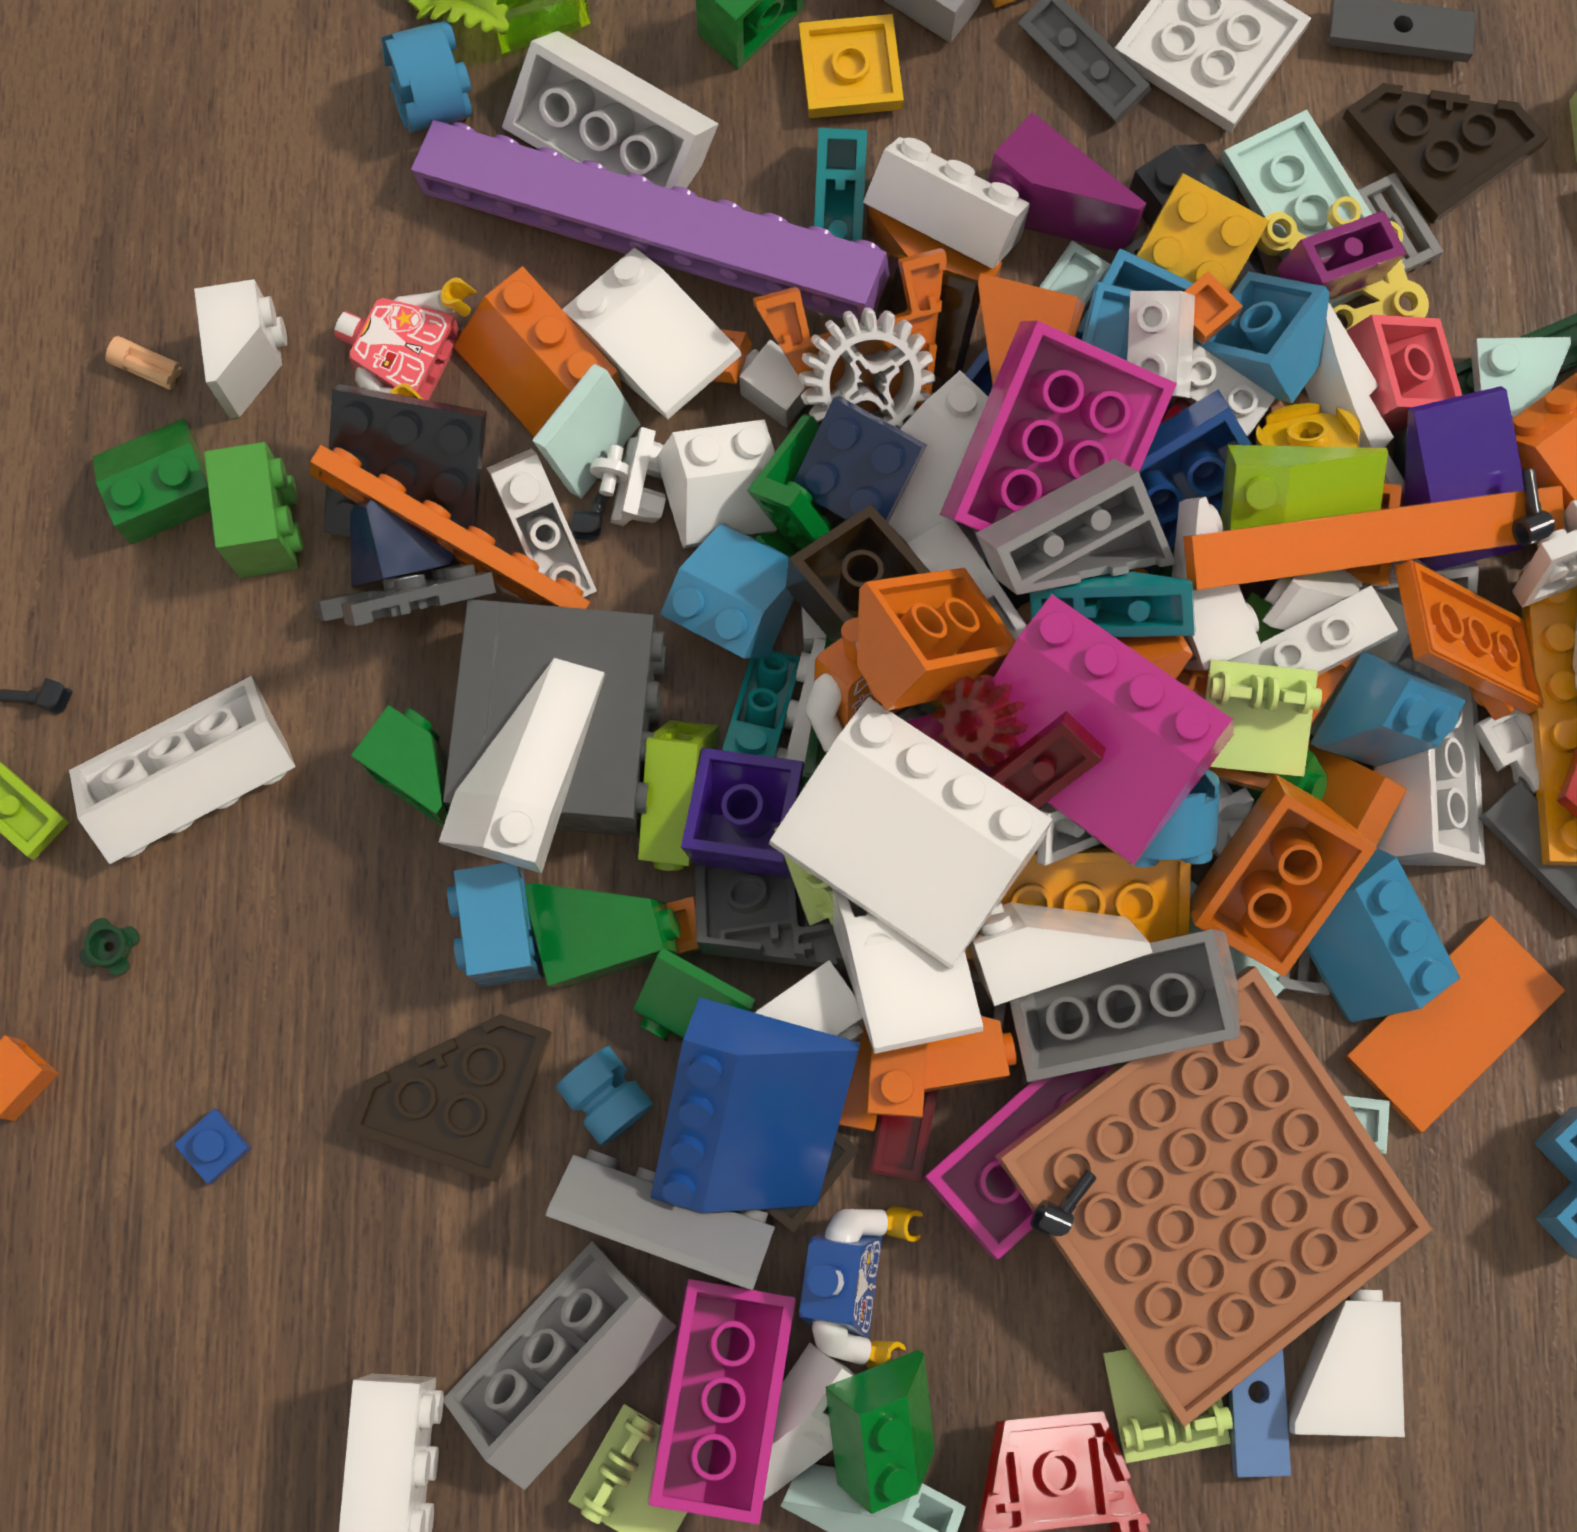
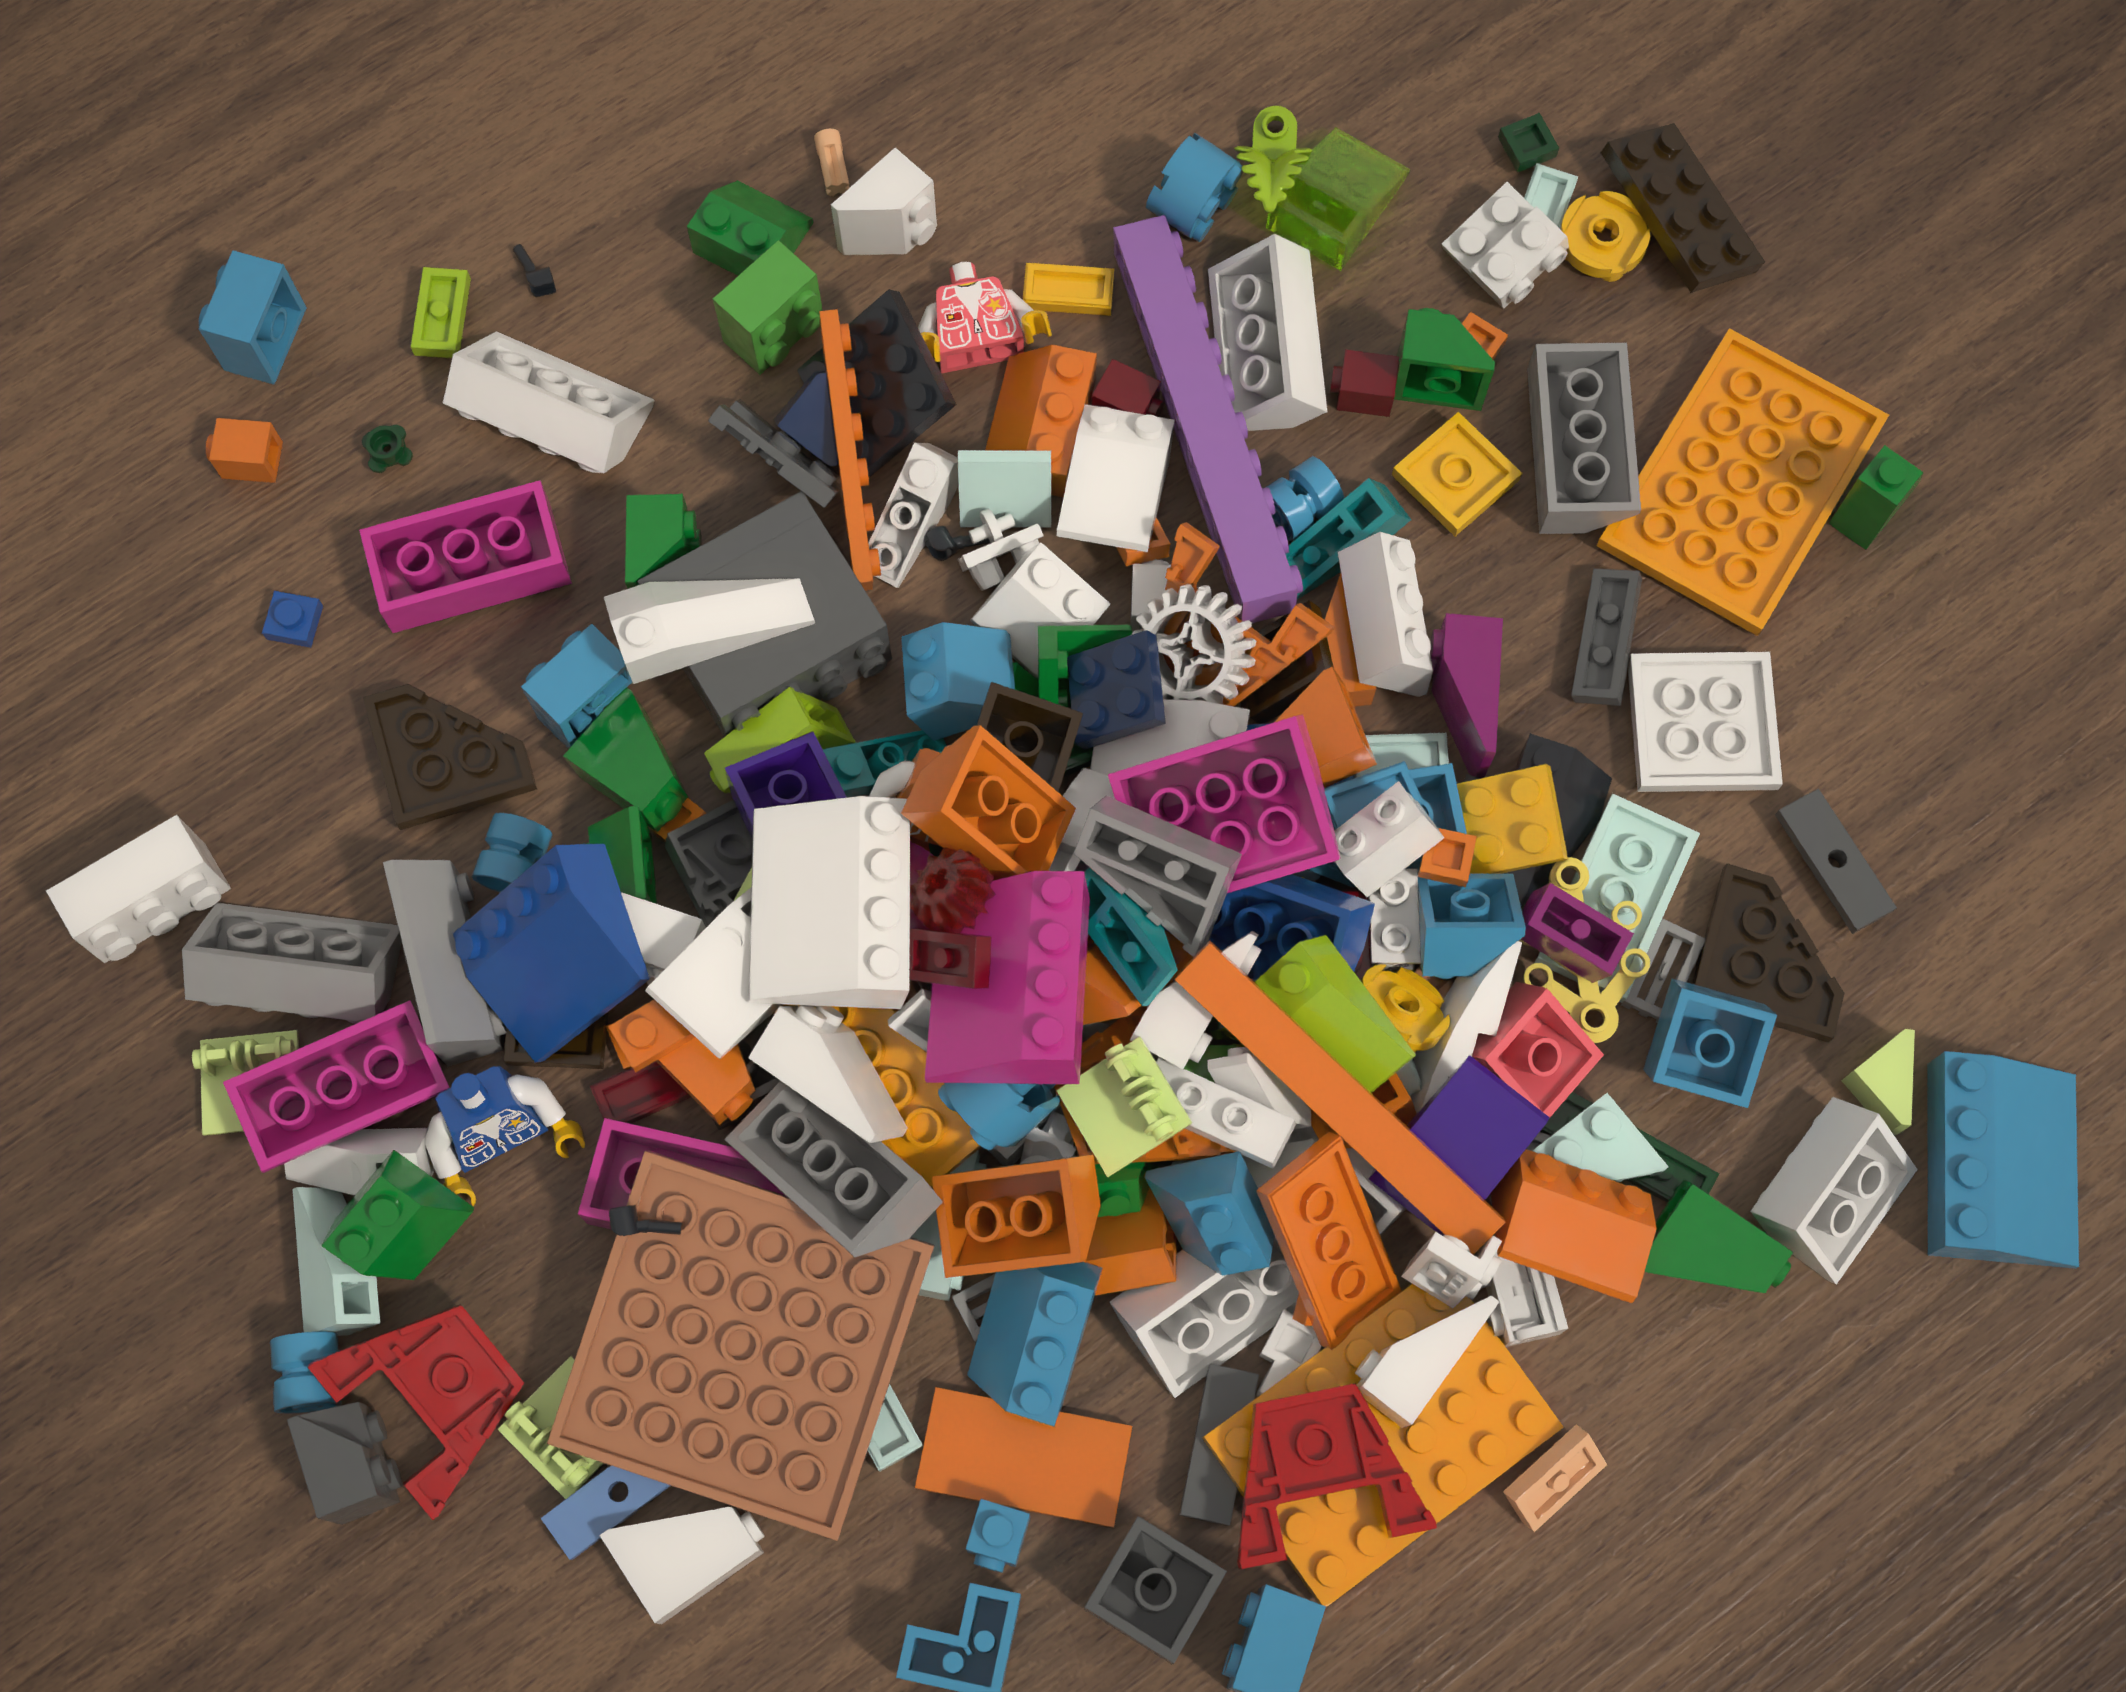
camera: 55 degrees right, 5 degrees down
(282, 944) = (465, 556): none -> dark pink brick
(429, 251) = (1069, 288): none -> yellow tile
(571, 269) = (1128, 390): none -> dark red brick
(714, 75) = (1365, 382): none -> dark red brick
(782, 188) = (1306, 495): none -> dark azure wheel
(1494, 229) = (1709, 1043): none -> dark azure brick
(1514, 1090) = (997, 1535): none -> dark azure brick
(1537, 522) = (1451, 1219): black hand -> none

